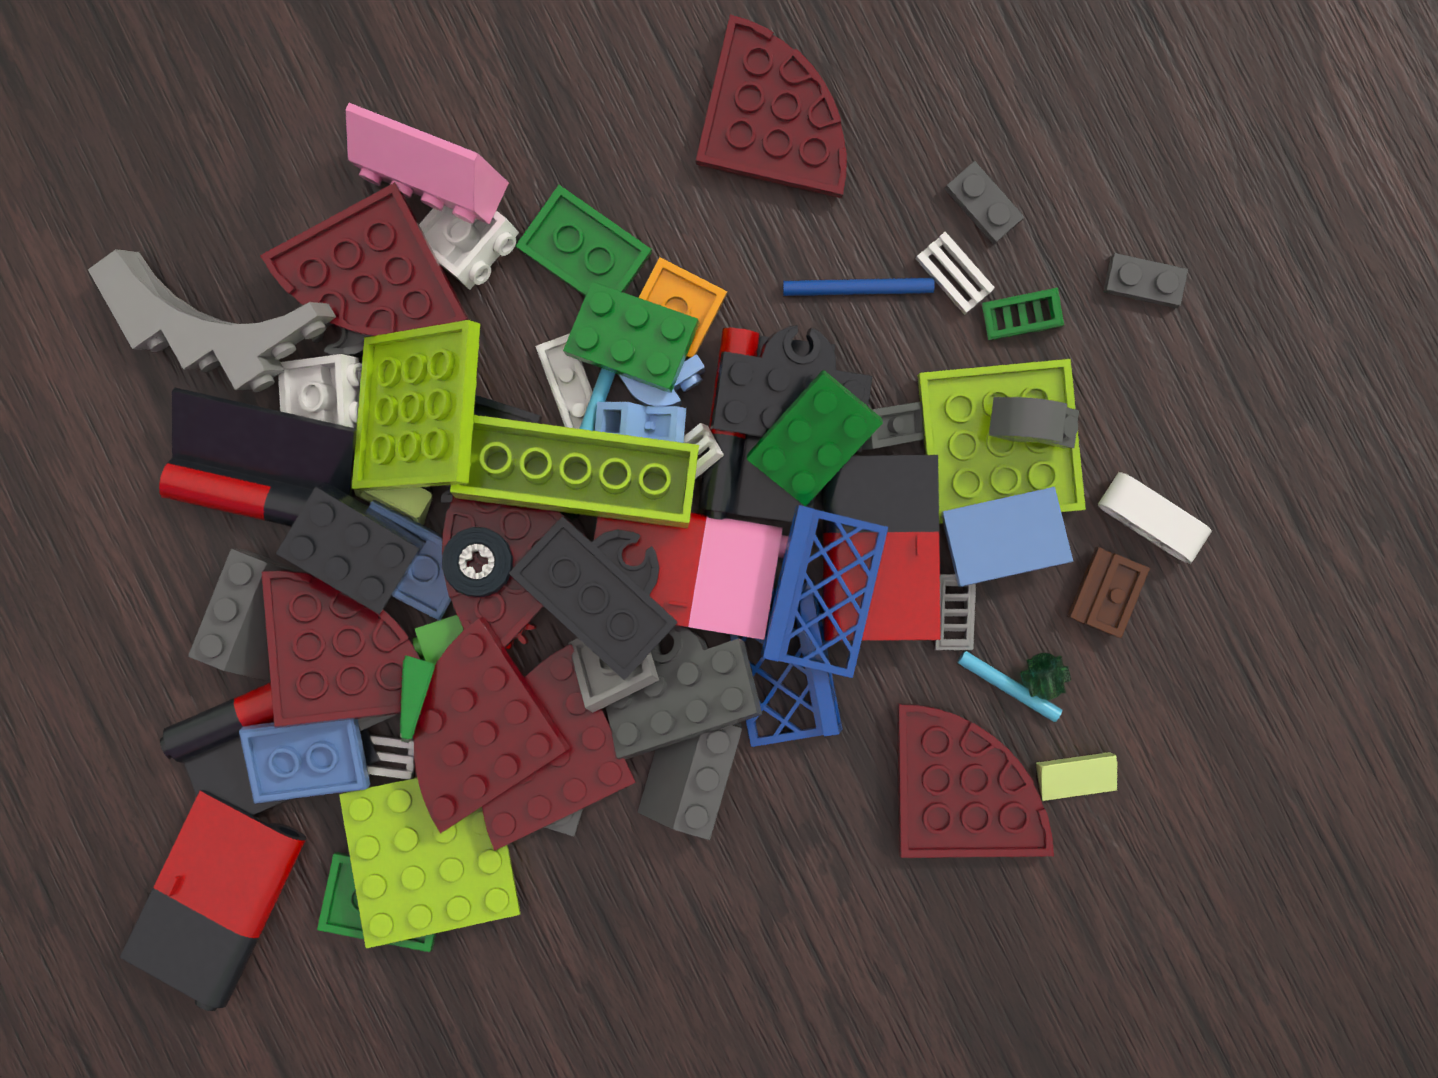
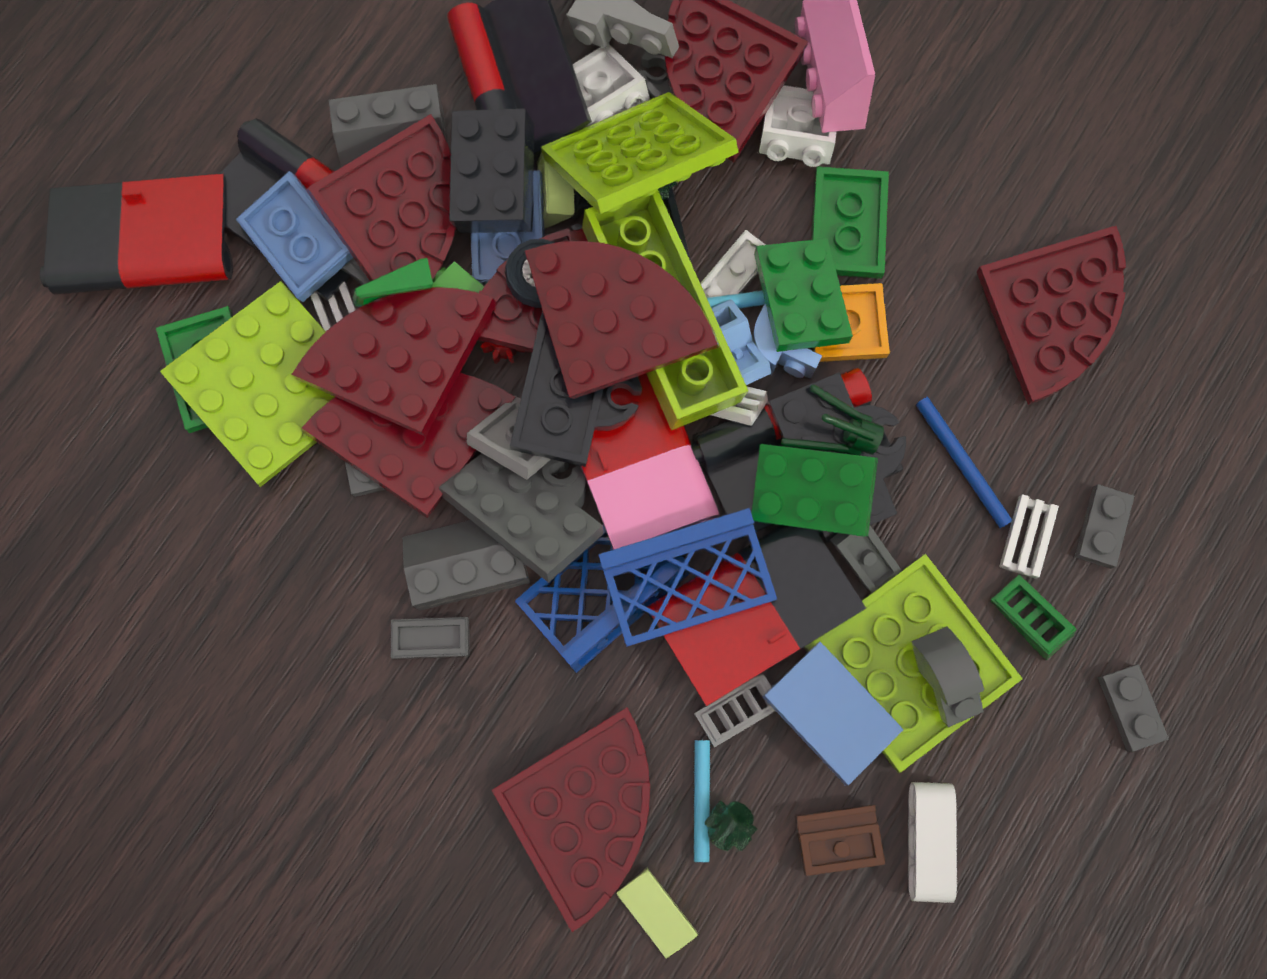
camera: 60 degrees right, 10 degrees down
(562, 522) = (614, 314): none -> dark red plate
(740, 837) = (430, 638): none -> dark grey tile
(790, 370) = (860, 433): none -> dark green plant

